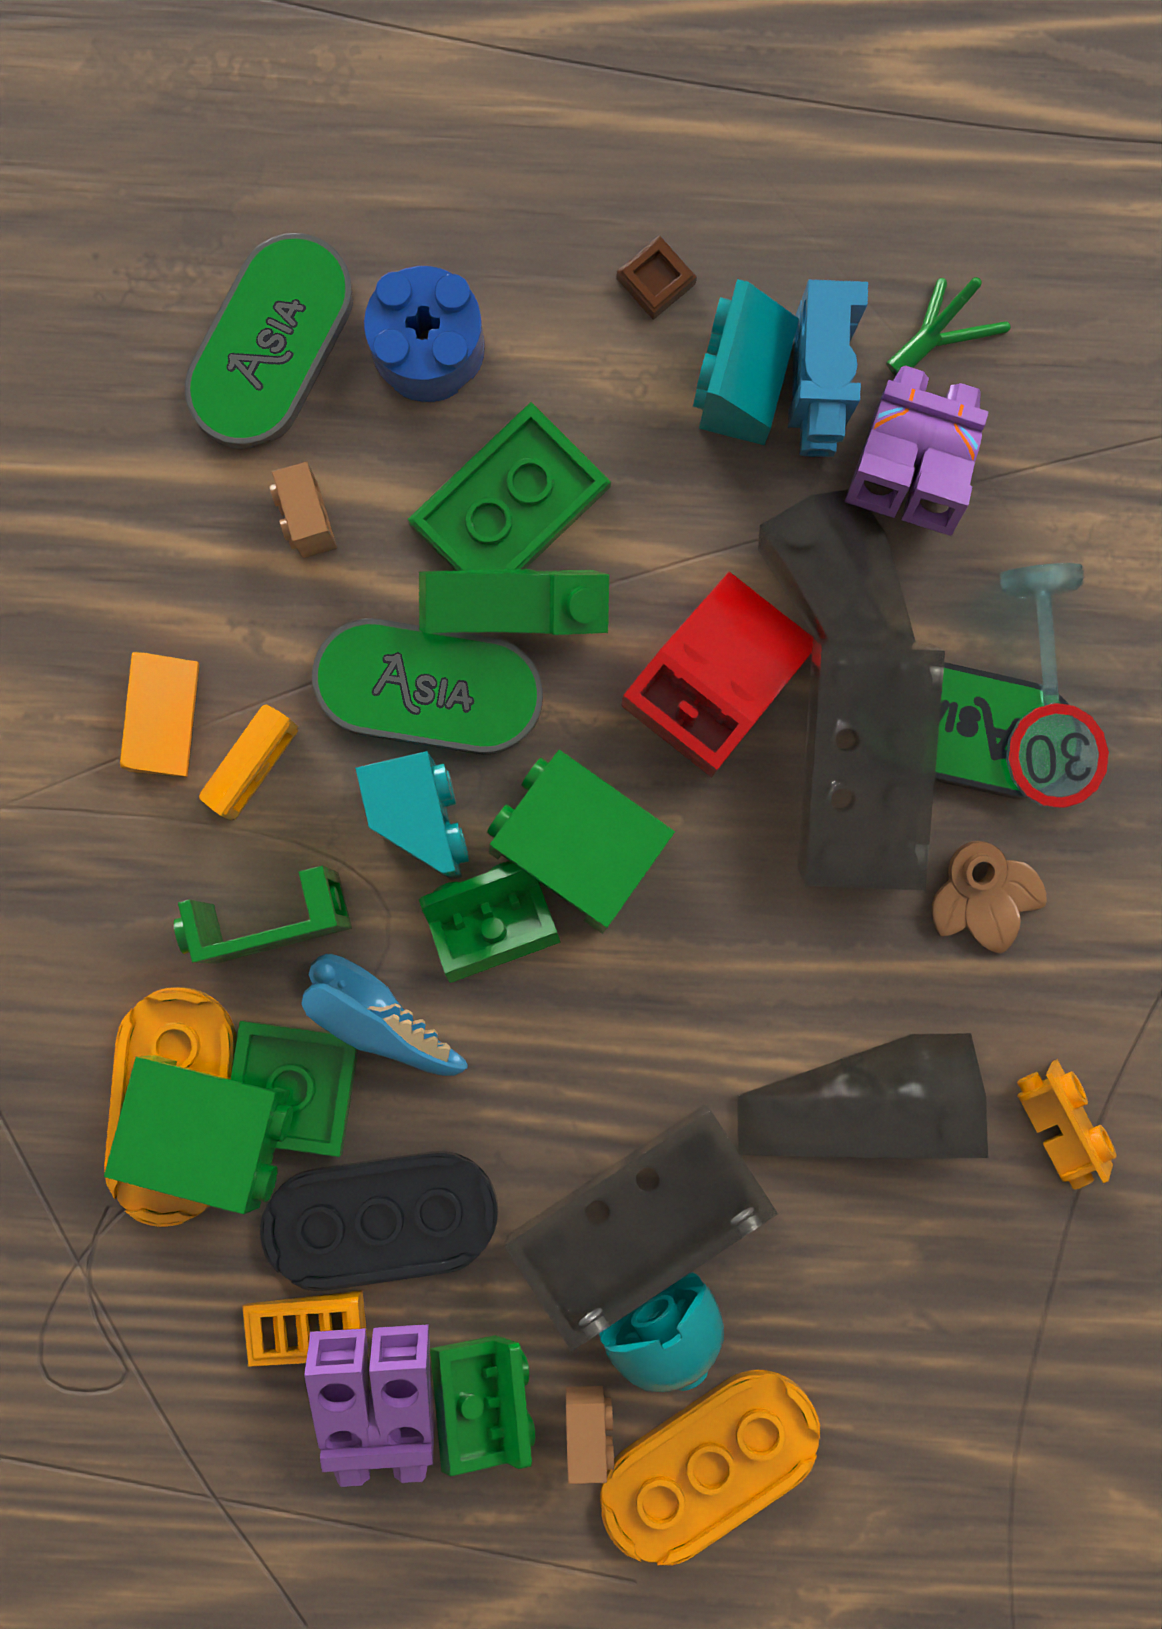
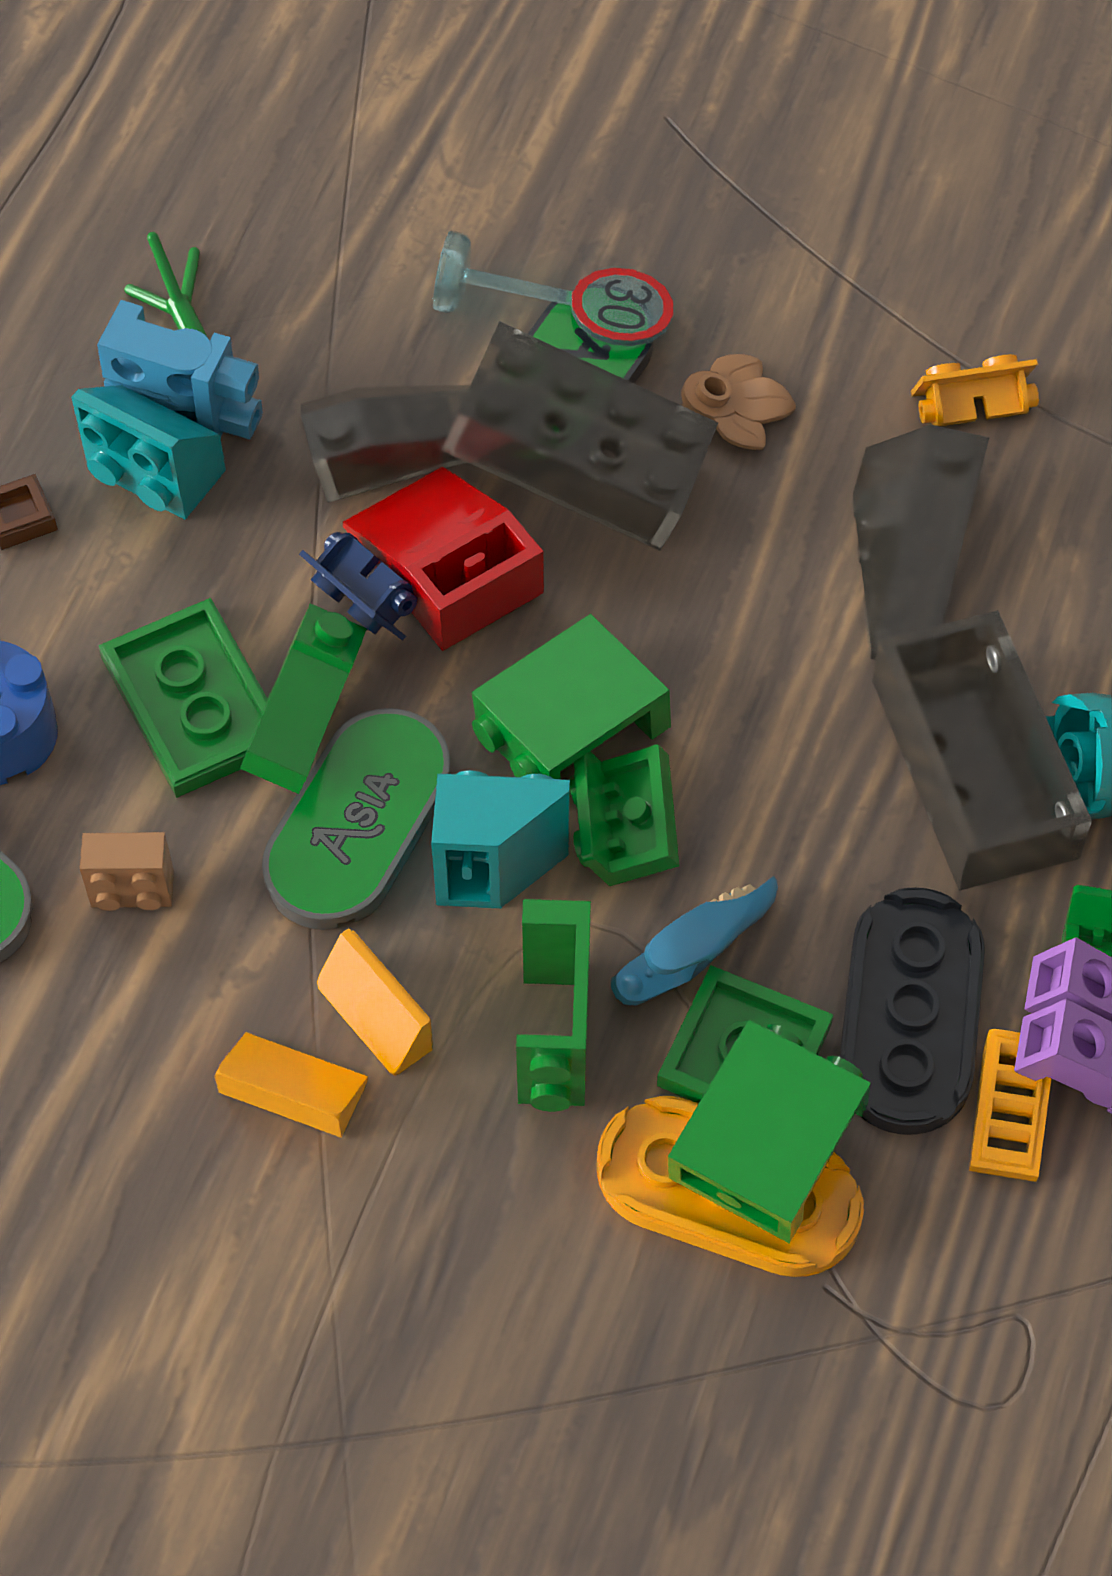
camera: 70 degrees left, 25 degrees down
(635, 630) = (344, 571): none -> dark blue hinge
(924, 431) = (294, 326): medium lavender hips -> none

